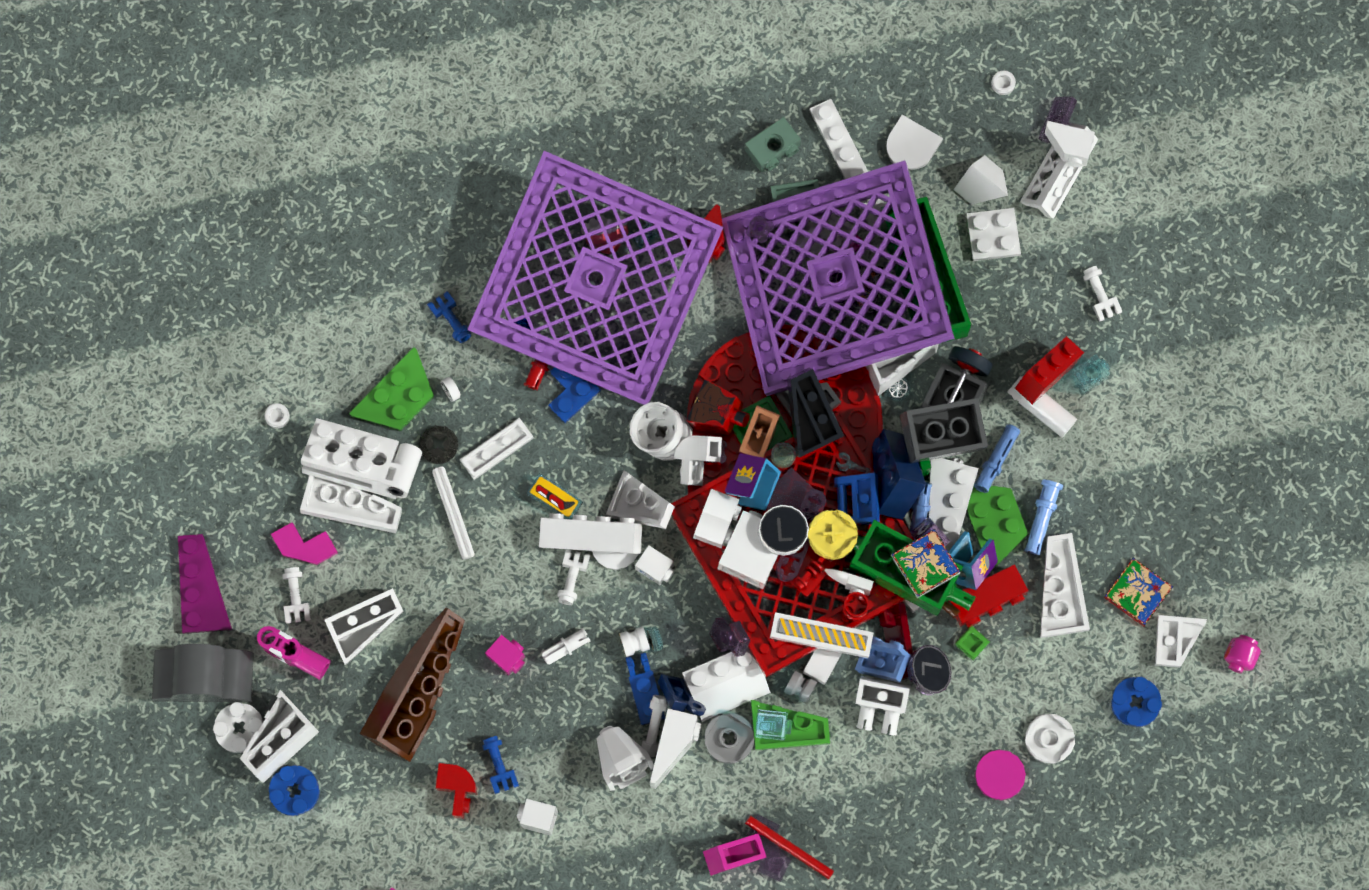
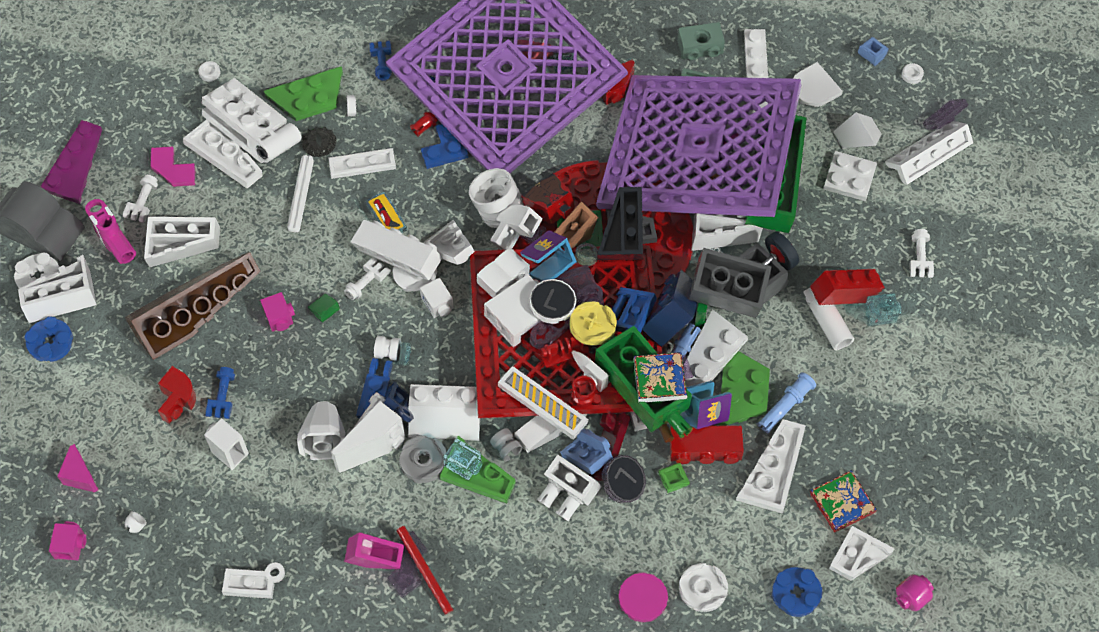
camera: 25 degrees right, 15 degrees down
(546, 626) = (324, 307): none -> green slope
(565, 646) = (329, 328): white axle -> none
(729, 636) = (466, 373): clear purple tile -> none
(756, 223) = (657, 87): clear purple plate -> none
(850, 464) = (636, 284): clear light blue hand -> none
(953, 75) = (873, 51): none -> medium blue brick
(993, 466) = (761, 344): medium blue pin -> none
(1070, 143) = (947, 126): white slope -> none

